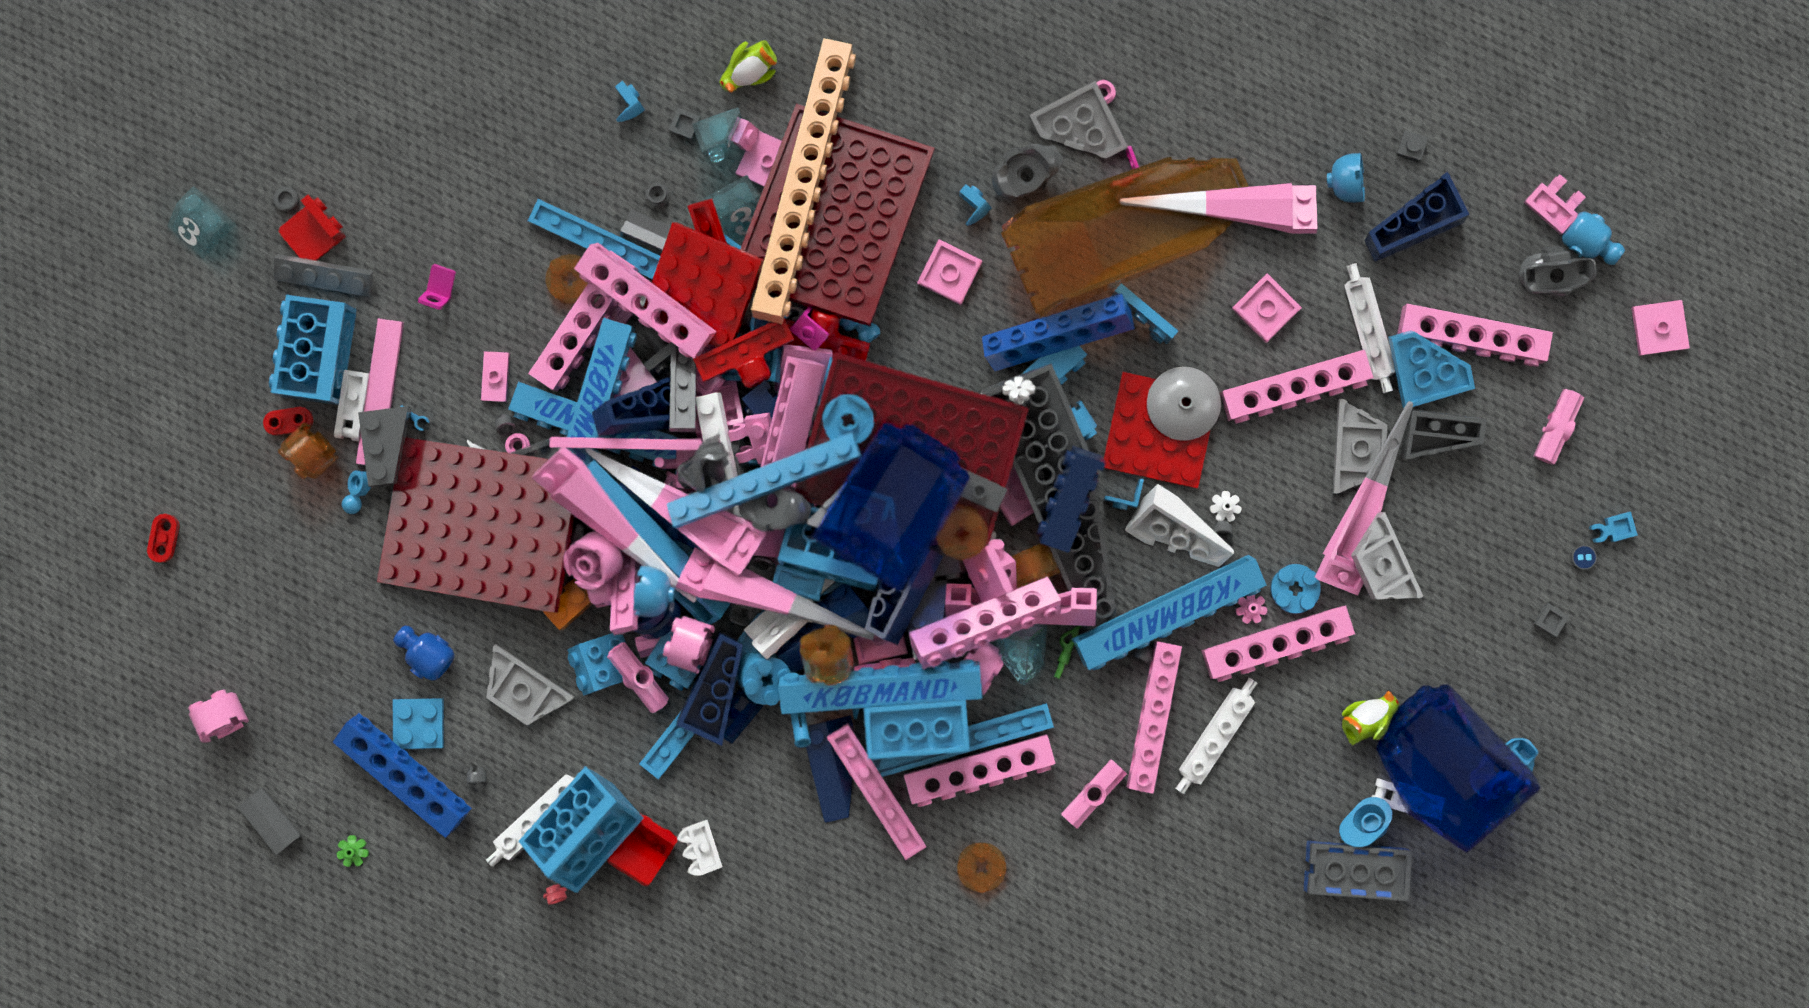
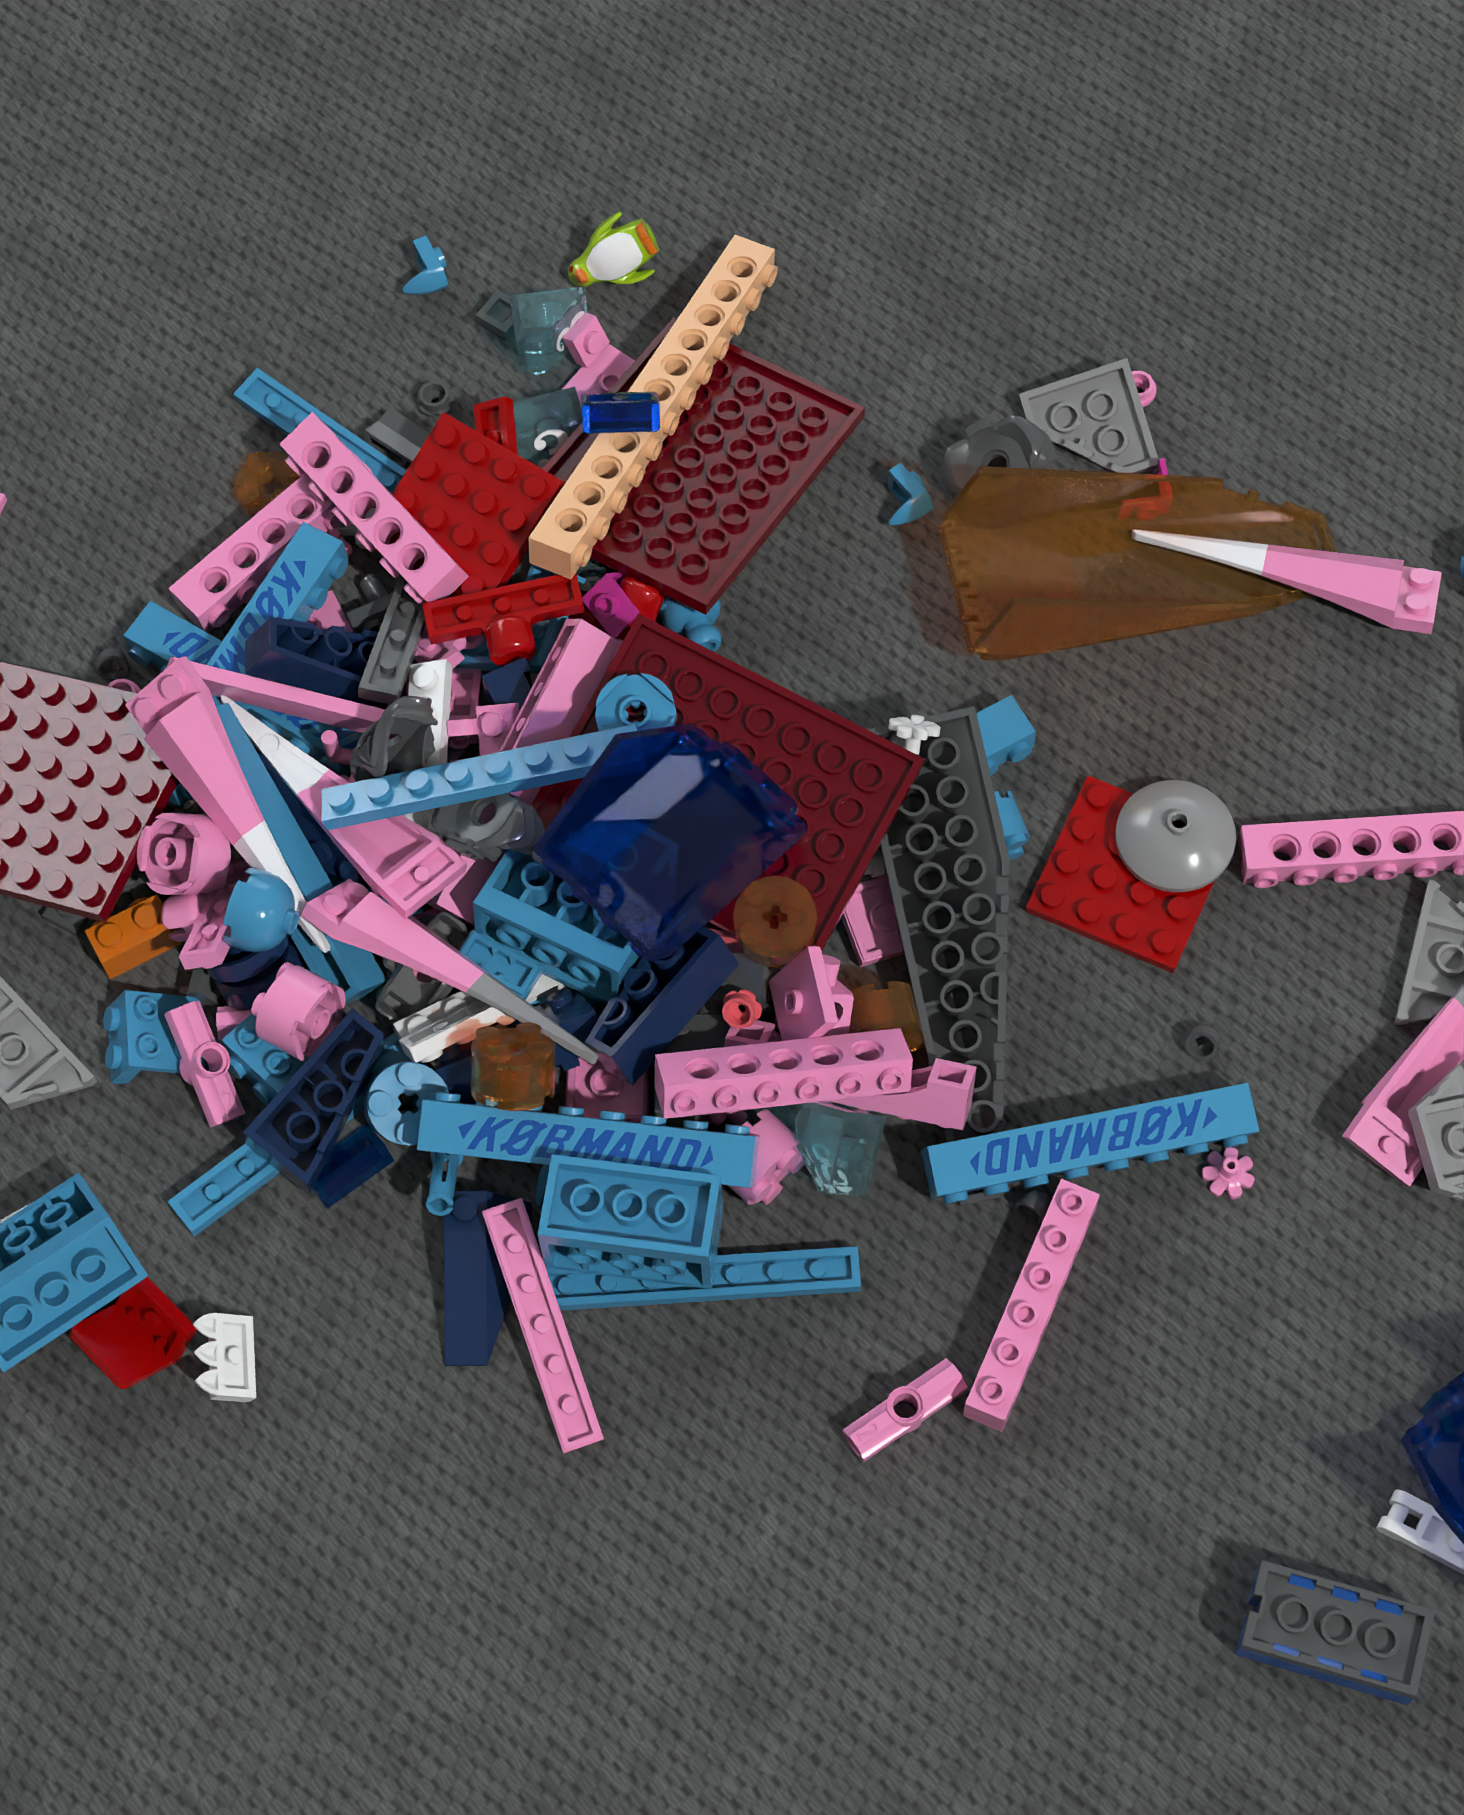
camera: 10 degrees right, 20 degrees down
(438, 287) = (76, 456): dark pink bracket -> none
(495, 376) = (119, 597): bright pink plate -> none
(785, 200) = (620, 412): none -> clear blue slope
(949, 272) = (848, 585): bright pink plate -> none
(950, 582) = (737, 1017): none -> coral plate
(981, 852) = (683, 1517): clear orange plate -> none
(984, 492) = (821, 869): dark grey plate -> none
(1038, 745) = (701, 1316): bright pink brick -> none
(1058, 332) = (1015, 687): blue brick -> none
(1067, 649) = (906, 1181): bright green hand -> none
(1070, 498) = (964, 913): dark blue wedge -> none
(1123, 504) = (1048, 965): dark azure bracket -> none
(1160, 329) = (1121, 672): dark azure plate -> none
(1170, 521) = (1123, 1012): white wedge -> none
(1216, 736) = (1131, 1363): white plate -> none
(1220, 508) = (1215, 1007): white plant -> none
(1266, 308) = (1334, 729): bright pink plate -> none
(1286, 577) = (1286, 1166): dark azure plate -> none
(1340, 631) = (1364, 1210): bright pink brick -> none
(1366, 822) = (1366, 1553): dark azure piece -> none
(1369, 718) = (1397, 1382): animal -> none

